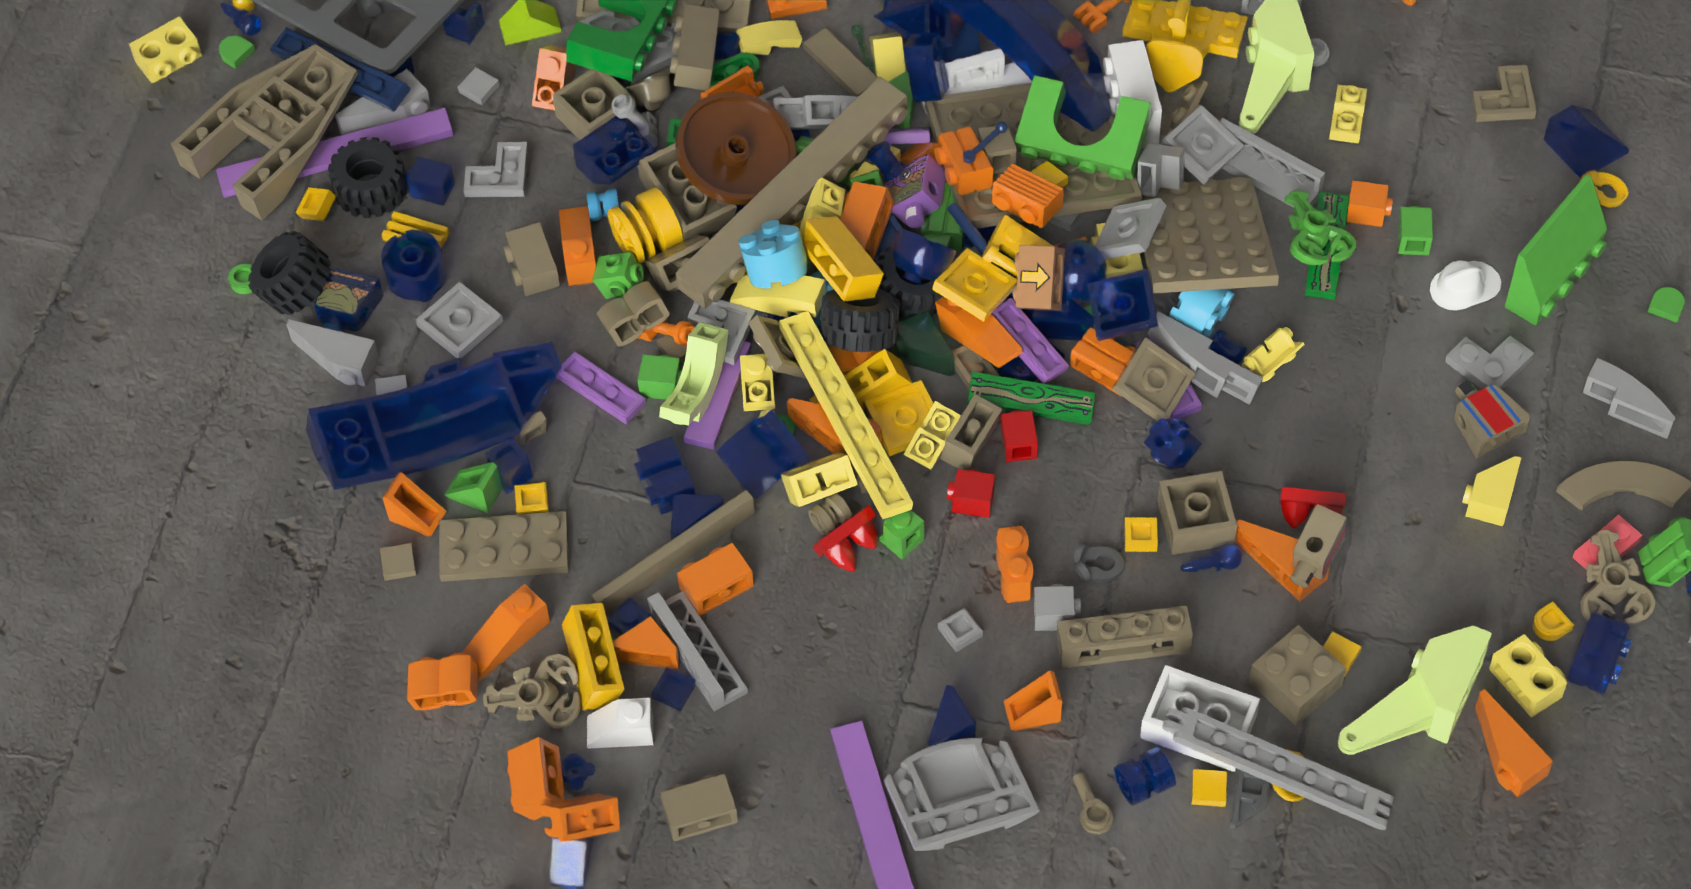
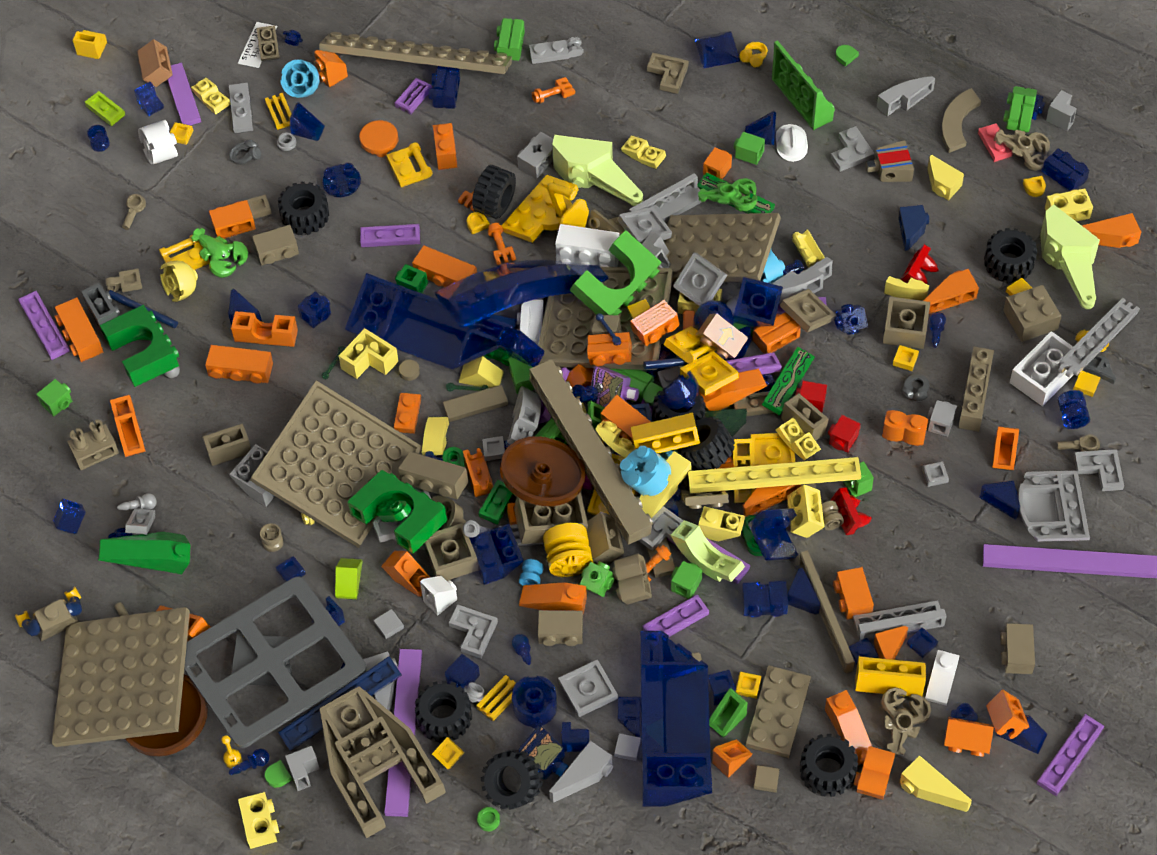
camera: 70 degrees left, 0 degrees up
(242, 62) = (300, 764): none -> light grey piece
(383, 327) = (574, 739): none -> clear blue panel
(415, 199) = (474, 691): none -> light grey plate
(426, 600) = (828, 781): none -> black tyre
(450, 749) = (930, 785): none -> light yellow slope
(494, 233) = (521, 645): none -> clear blue bar
(531, 113) = (438, 593): none -> white slope
(616, 16) = (393, 511): none -> green plate
(1068, 847) = (1104, 463): none -> light grey plate
(1263, 501) = (913, 290): none -> light yellow slope
(1318, 545) = (964, 264): dark tan torso -> none
(1383, 475) = (912, 224): none -> dark blue slope
(1397, 595) = (1010, 242): none -> black tyre
(1460, 241) = (764, 128): none -> clear blue slope

